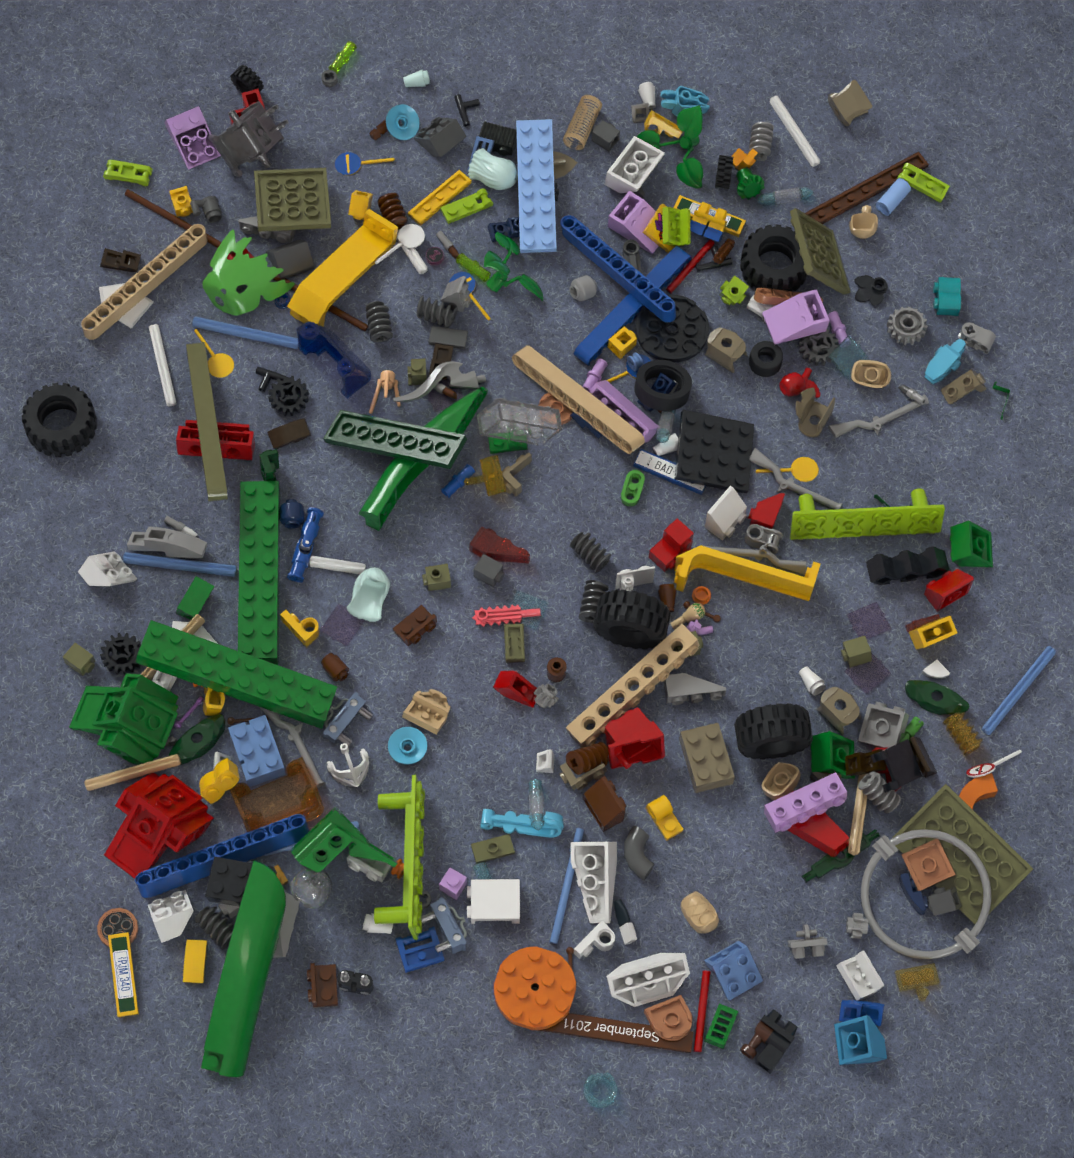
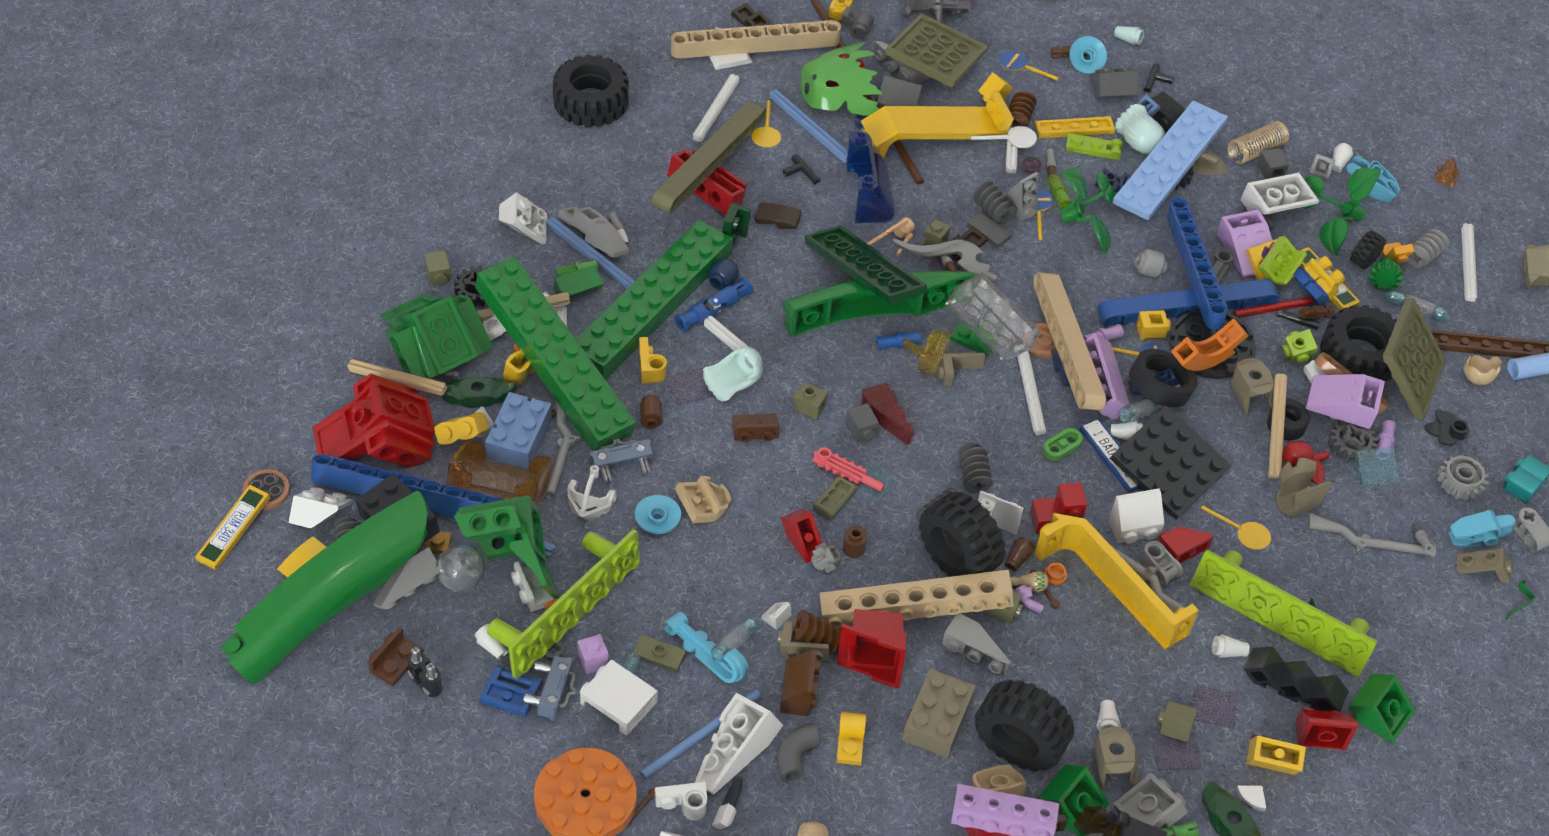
camera: 35 degrees right, 15 degrees down
(178, 724) = (473, 370): medium lavender hinge -> none
(181, 586) = (576, 266): none -> bright green axle
(288, 403) = (803, 188): black gear -> none
(378, 321) = (934, 180): dark grey piece -> none
(583, 462) = (1031, 393): none -> white axle
(635, 361) = (1152, 343): medium blue bush -> none
(670, 128) = (1336, 182): yellow plate -> none
(678, 344) = (1212, 351): none -> orange arch
(731, 57) = (1447, 173): none -> clear orange tile
(761, 460) = (1213, 497): light grey piece -> none
(766, 372) = (1277, 426): none -> tan axle
(848, 571) = (1229, 647): none -> white cone
(871, 373) = (1390, 493): tan piece -> none

